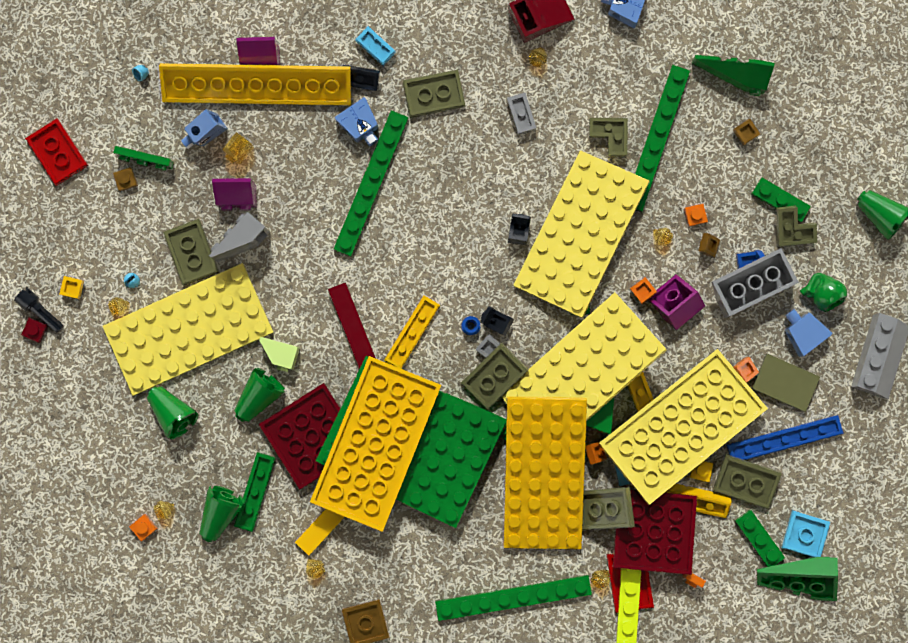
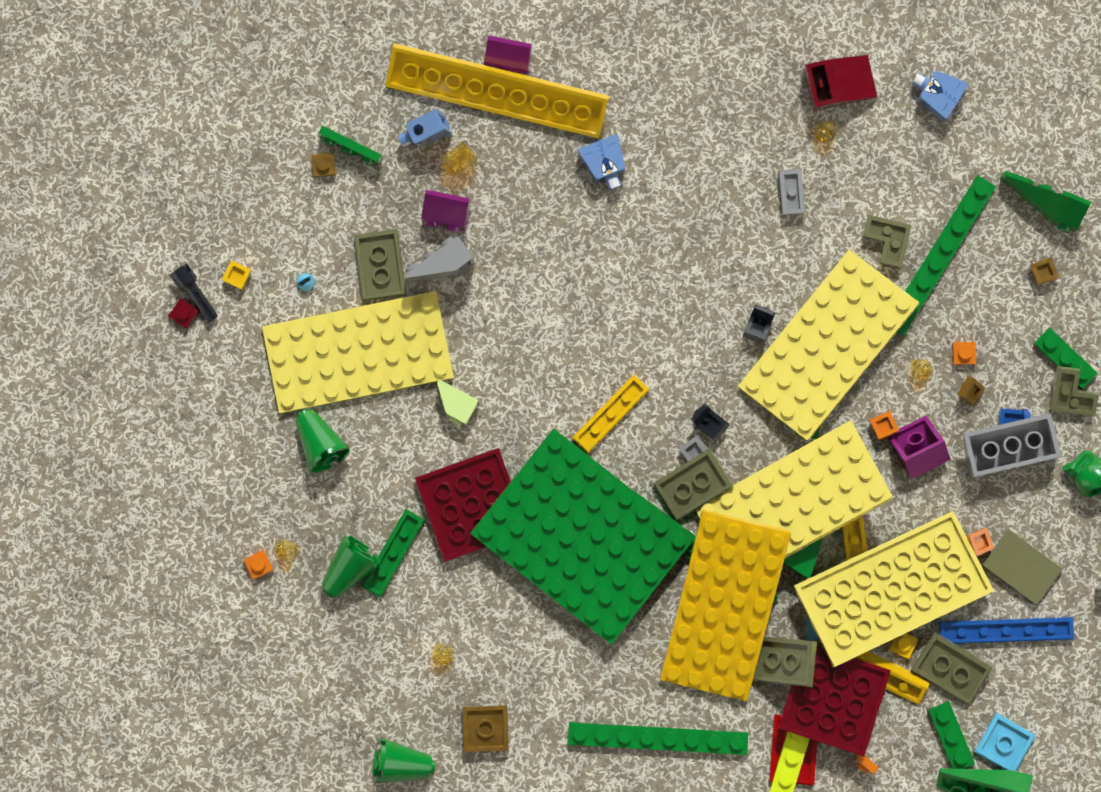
camera: 10 degrees right, 0 degrees up
(56, 152) = (252, 116): red tile -> none
(118, 306) = (284, 308): clear yellow plate -> none
(140, 72) = (367, 46): medium azure hinge -> none
(257, 395) = (421, 445): green cone -> none
(318, 531) = (469, 603): yellow tile -> none
(351, 322) = (544, 387): dark red tile -> none
(364, 78) = (621, 110): black plate -> none
(371, 183) = (602, 233): green plate -> none
(375, 46) = (642, 76): medium azure plate -> none
(375, 443) = (543, 528): yellow plate -> none
(434, 93) = (697, 146): olive tile -> none
(467, 320) = (679, 413): blue plate -> none
(595, 453) = (787, 597): orange plate -> none
(600, 579) = (760, 739): clear yellow plate -> none
(805, 332) = (1057, 514): medium blue torso -> none

